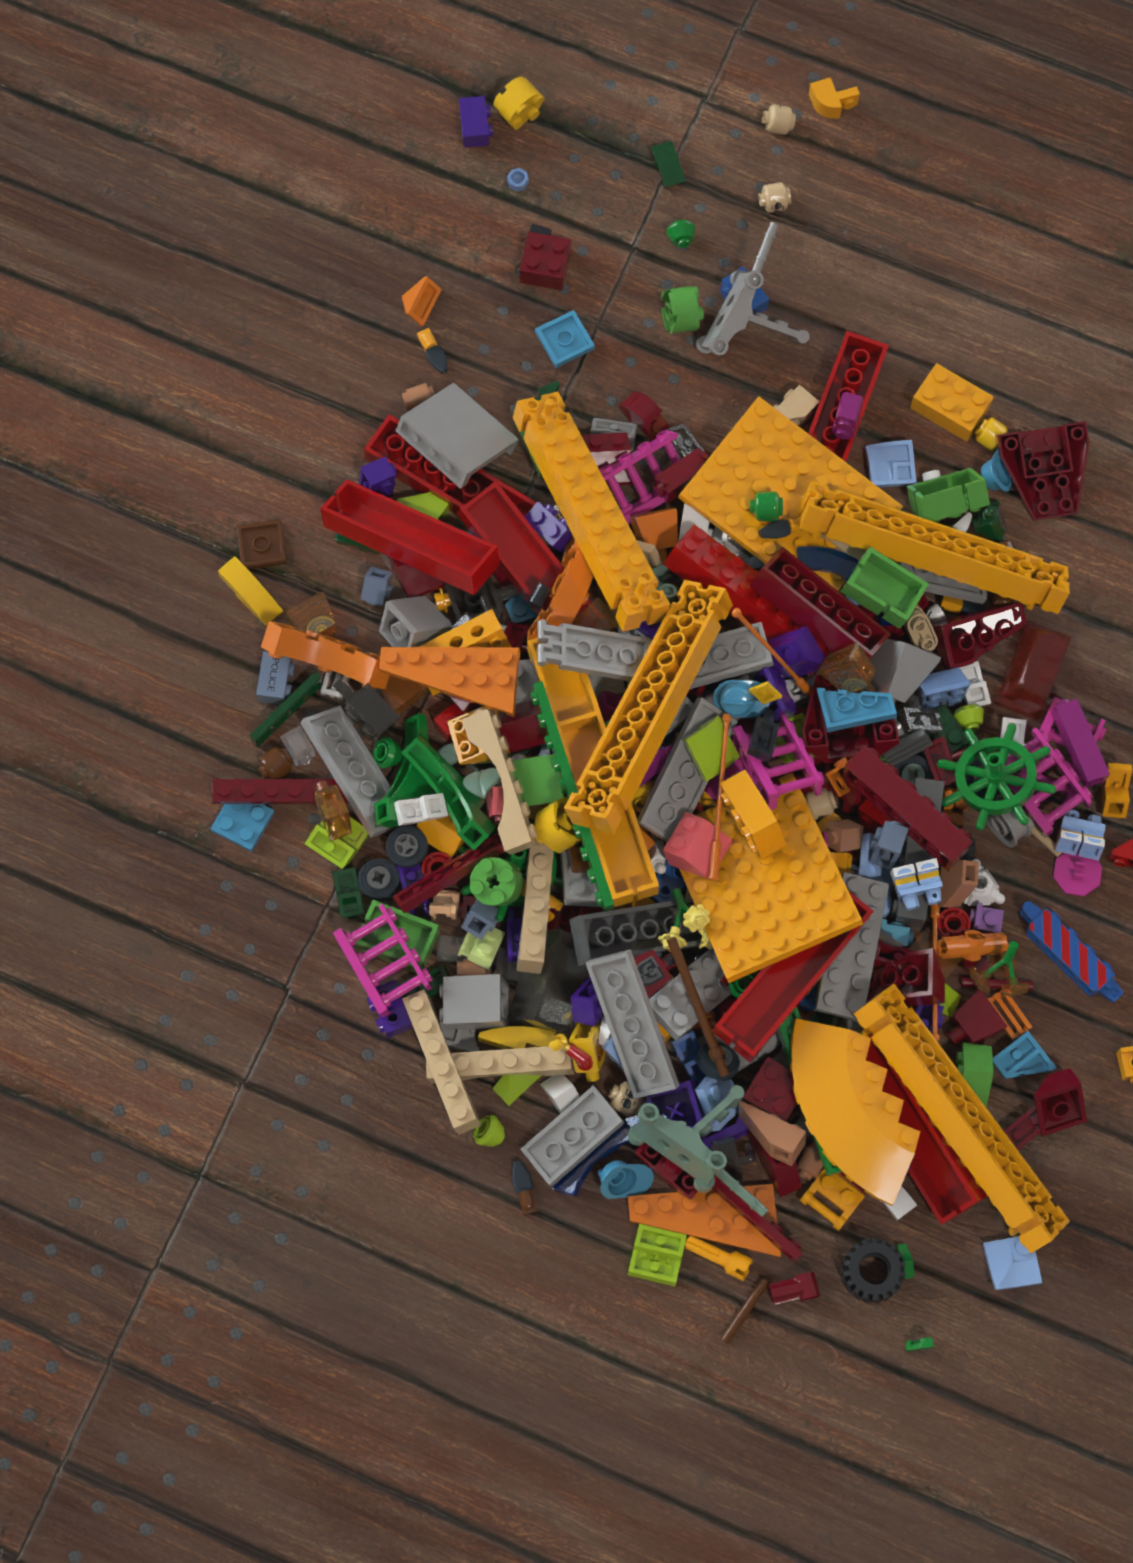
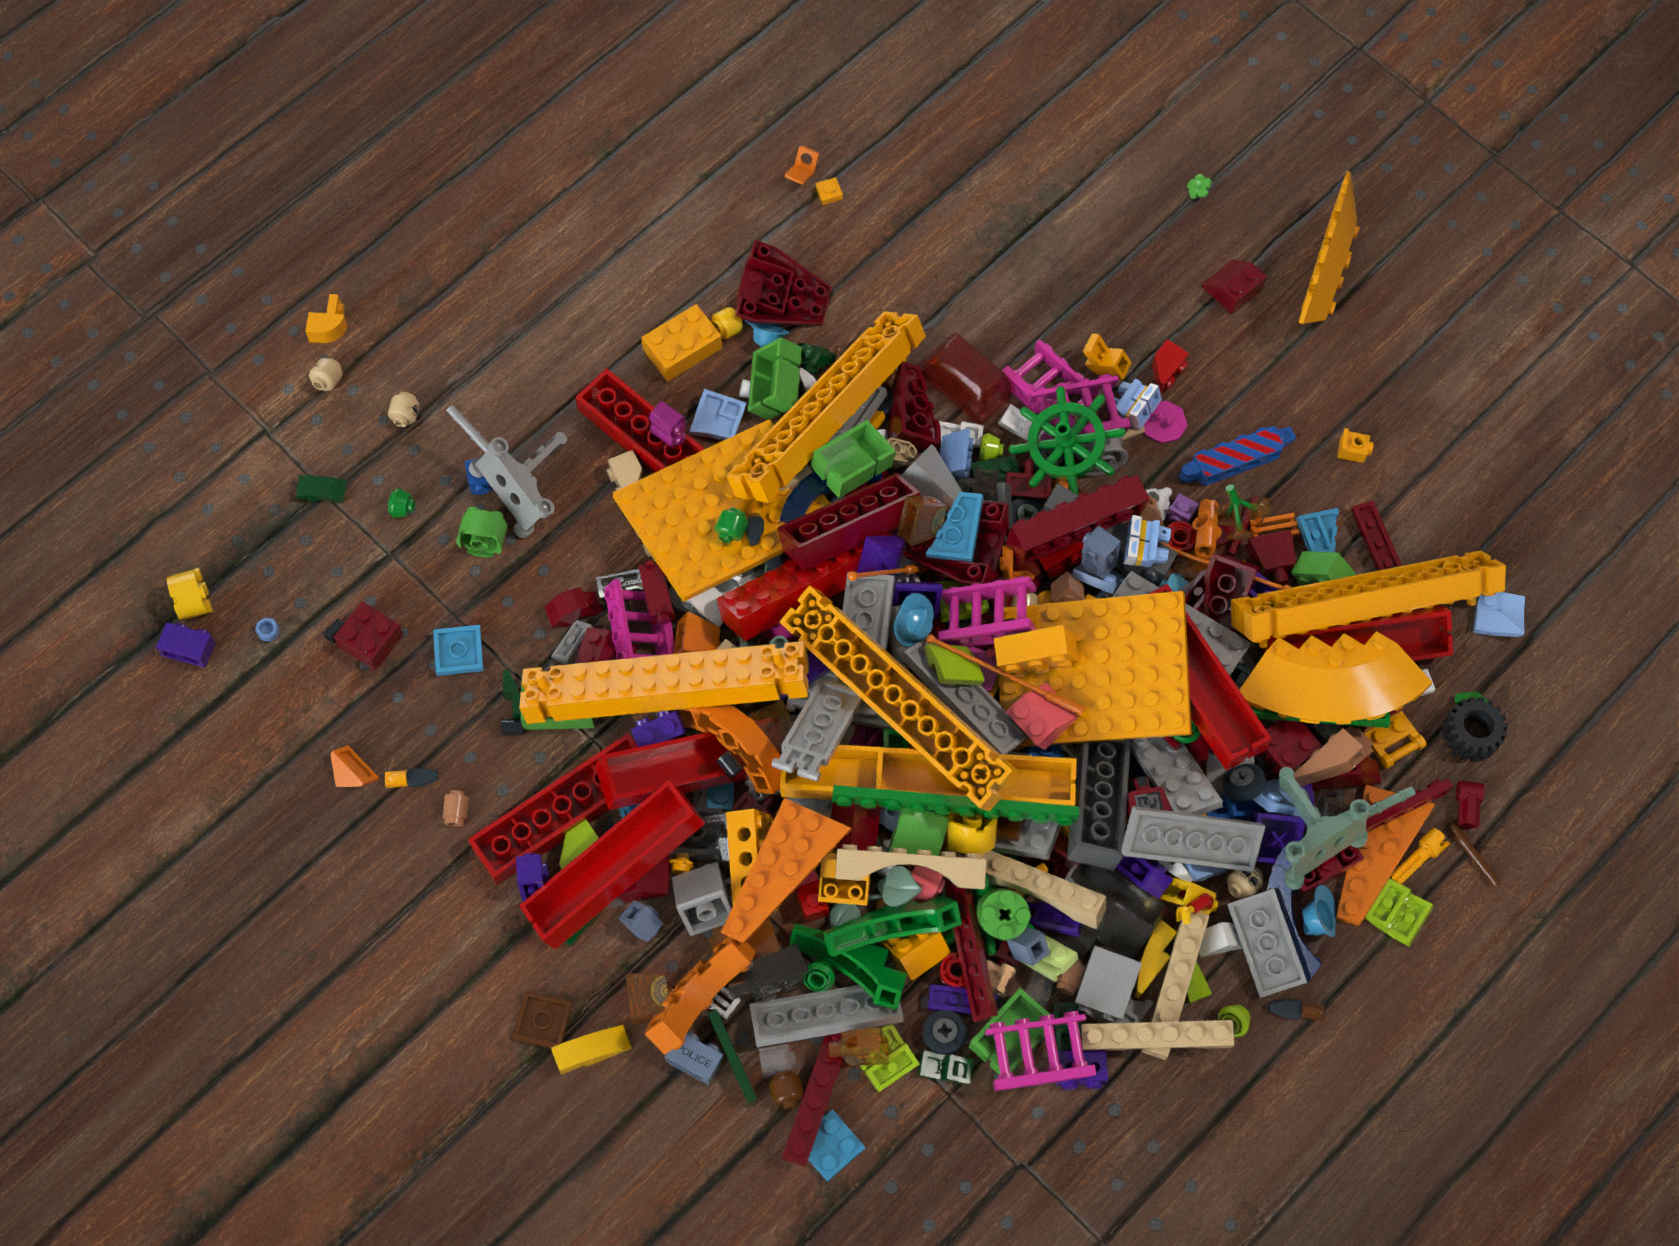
camera: 70 degrees left, 5 degrees down
(409, 838) = (931, 983): black wheel -> none
(420, 809) = (900, 959): white slope -> none
(455, 434) = (519, 784): light grey panel -> none
(509, 408) = (512, 727): none -> black hinge
(695, 920) = (1120, 740): light yellow plant -> none
(716, 1051) = (1243, 776): reddish brown bar -> none
(763, 736) = (961, 612): black hinge -> none
(765, 692) = (920, 594): yellow slope -> none
(922, 1344) = (1550, 717): green tile -> none
(1060, 1102) = (1375, 512): dark red slope -> none
(1080, 742) = (1055, 365): magenta brick -> none

